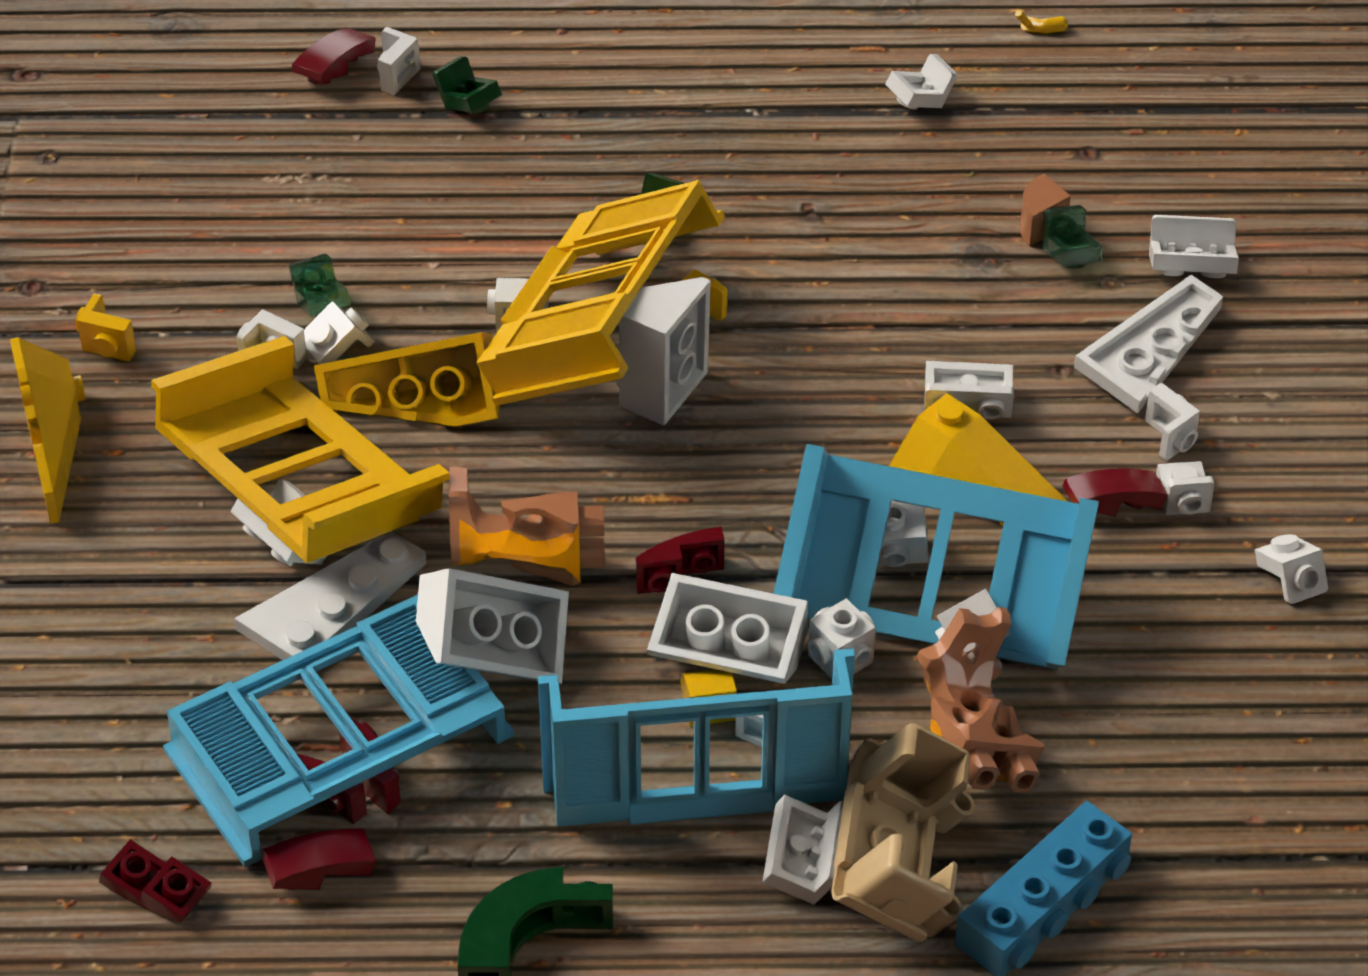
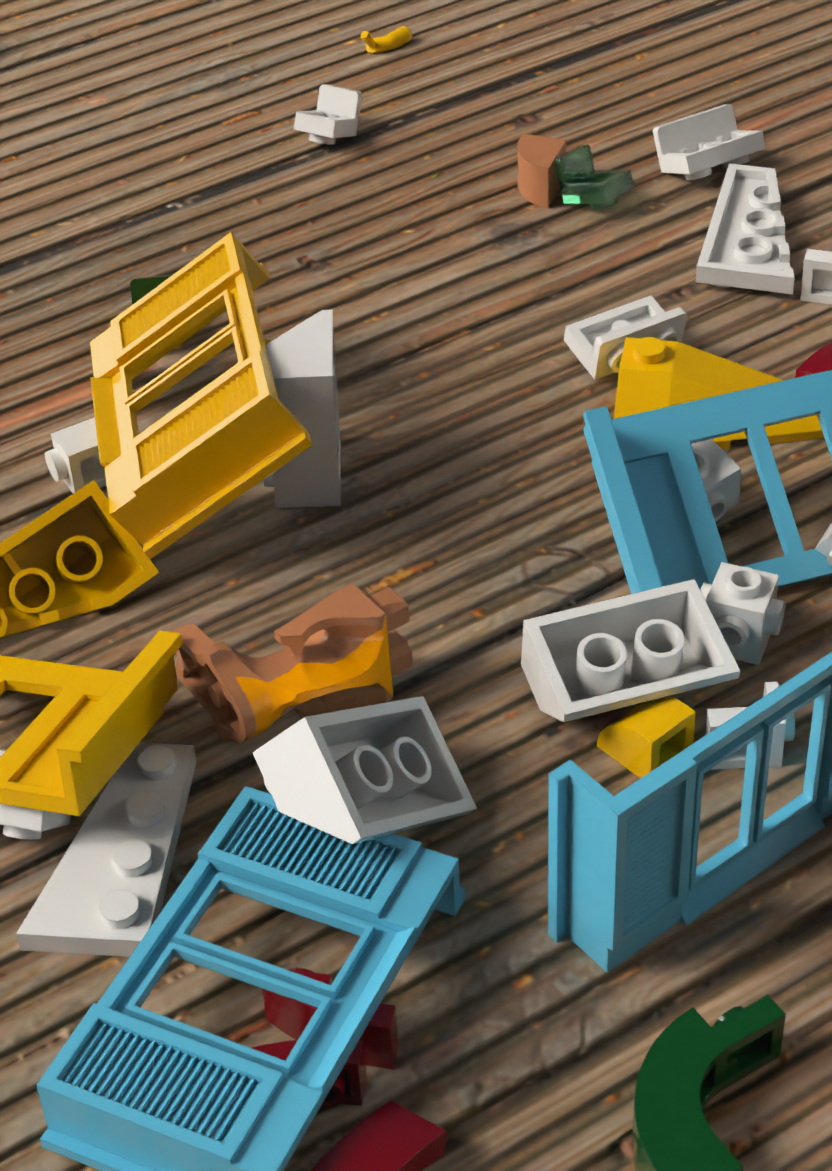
camera: 30 degrees left, 5 degrees down
(684, 554) = (486, 620): dark red slope -> none

